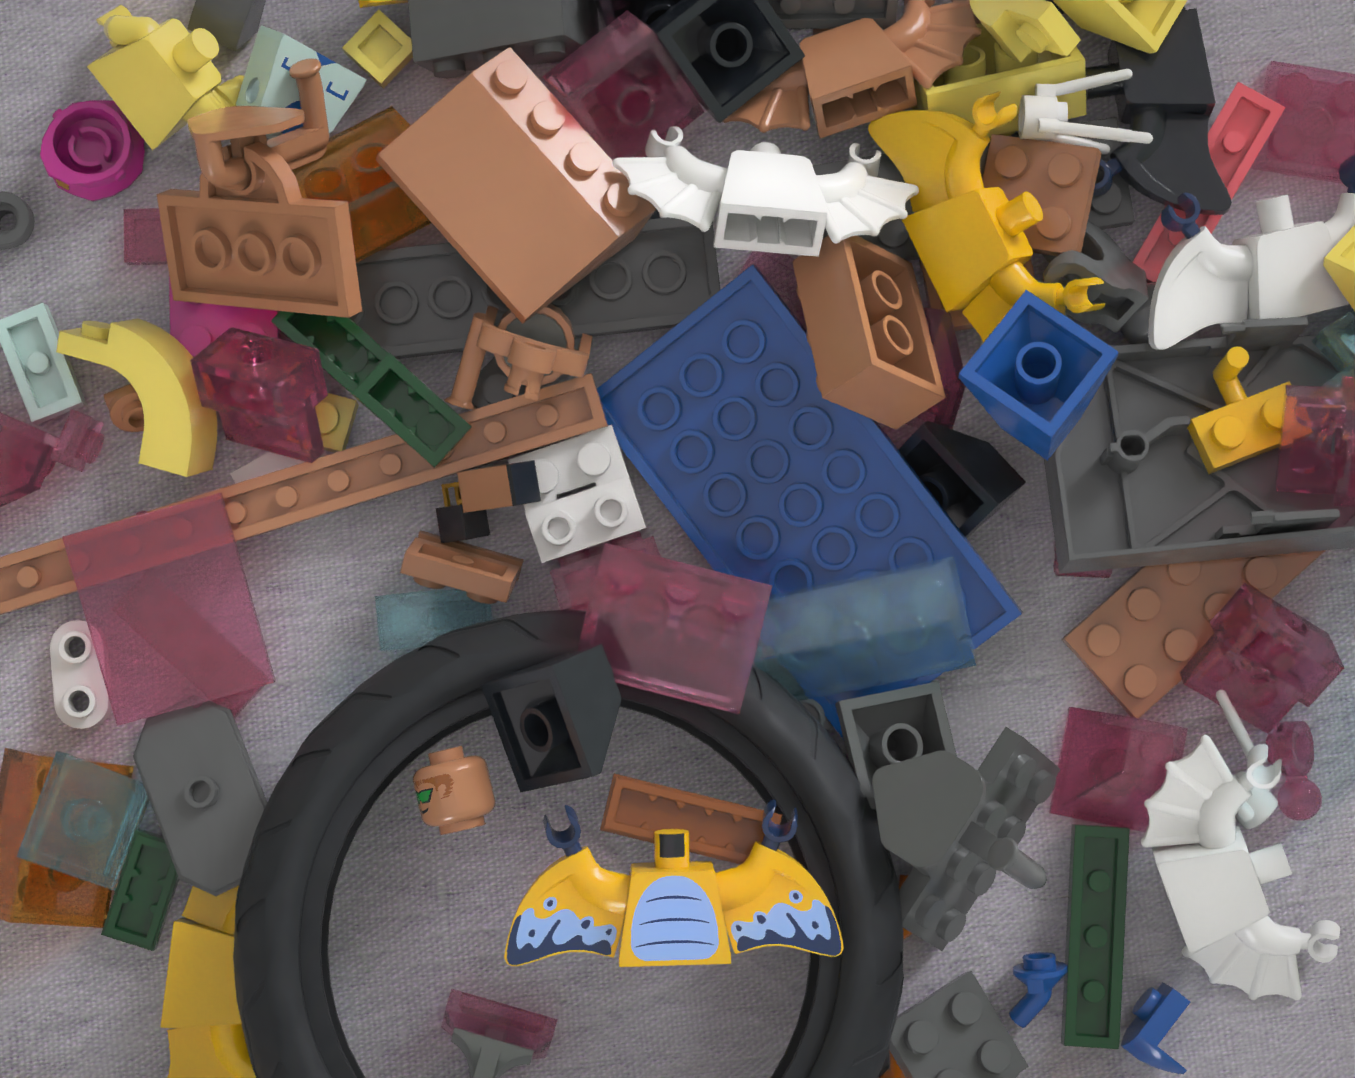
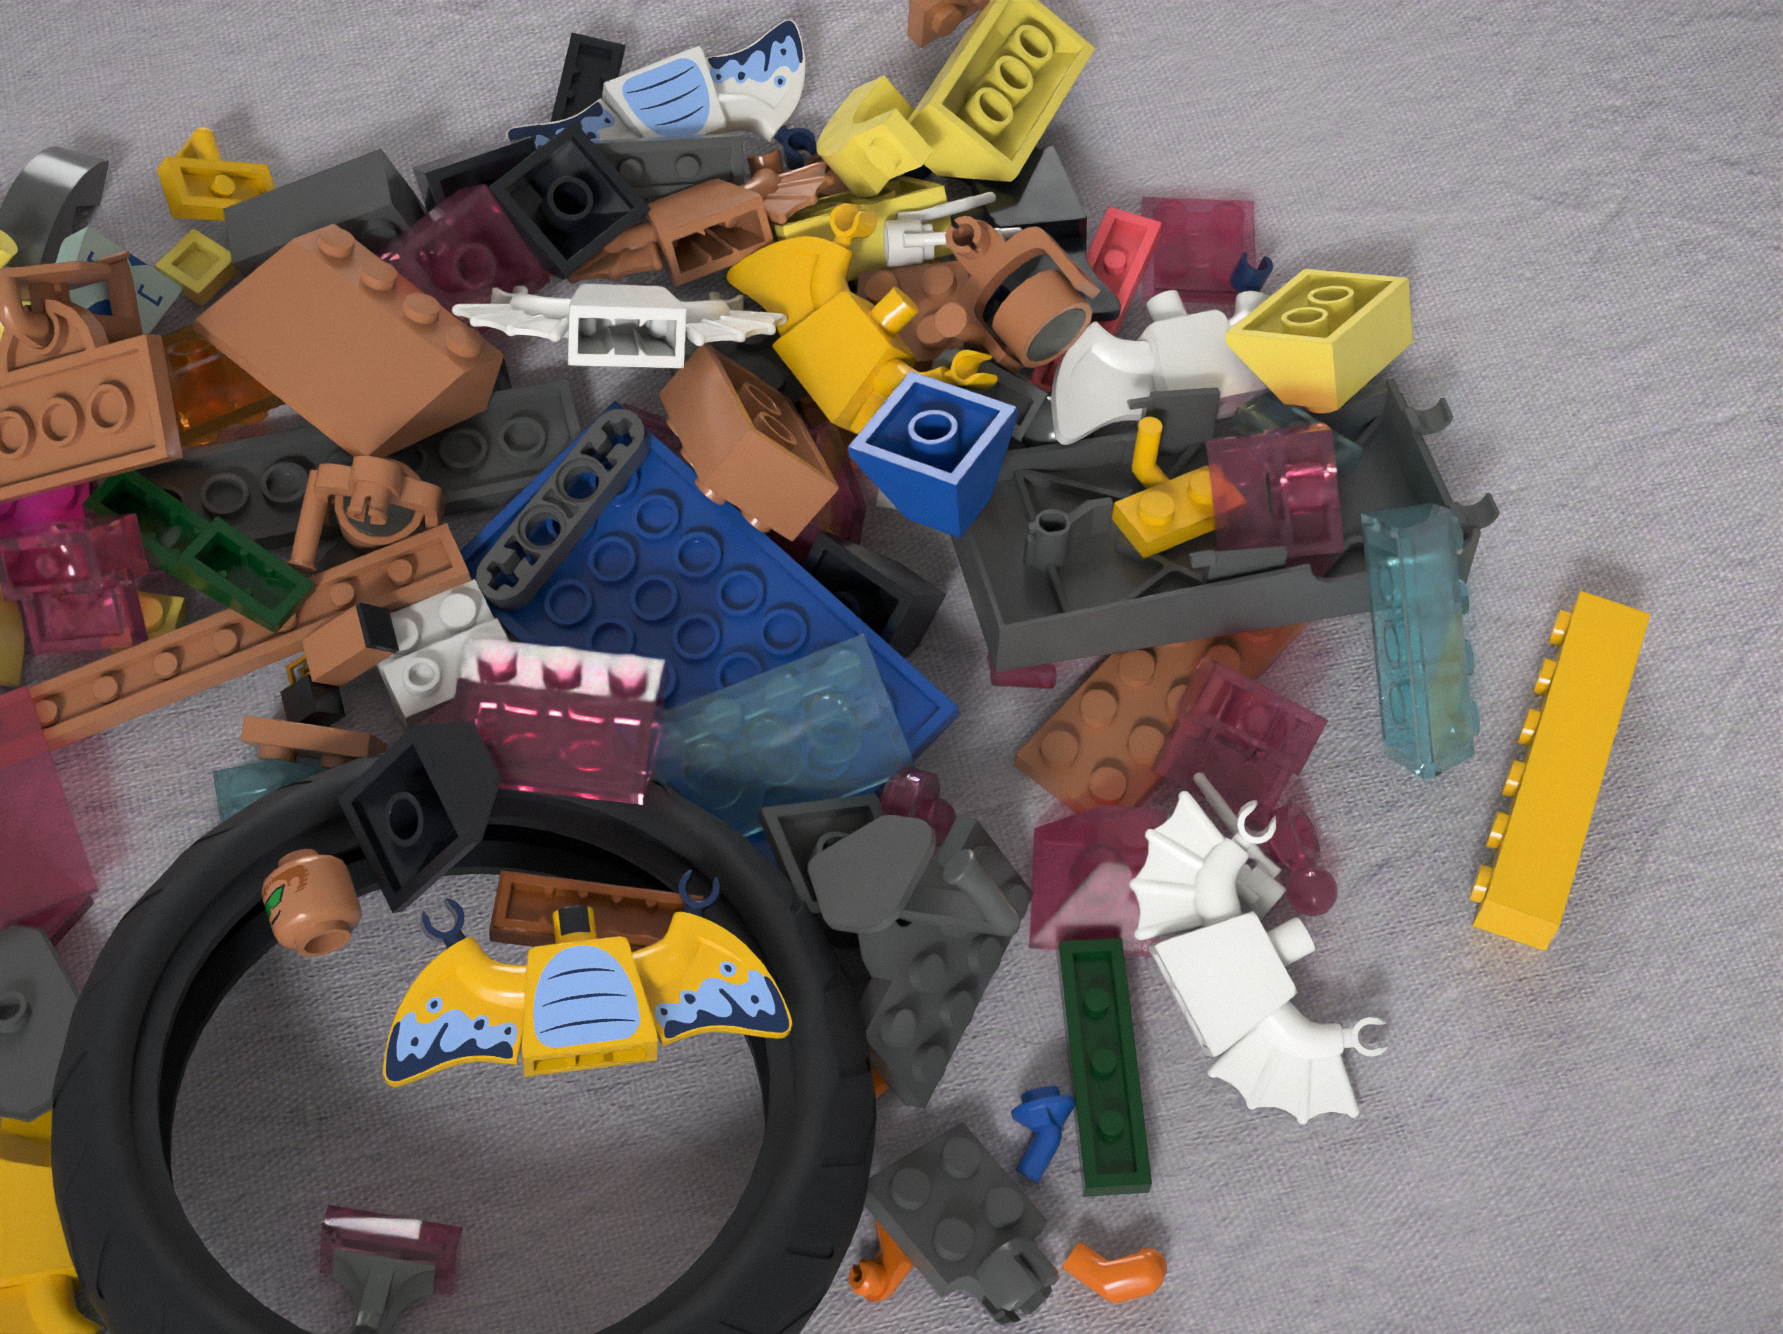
camera: 10 degrees left, 25 degrees down
(692, 365) = (572, 514): none -> dark grey beam
(973, 694) = (916, 795): none -> clear pink plate
(1152, 239) = (1036, 318): none -> nougat piece
(1155, 1015) = (1188, 1141): blue plate -> none

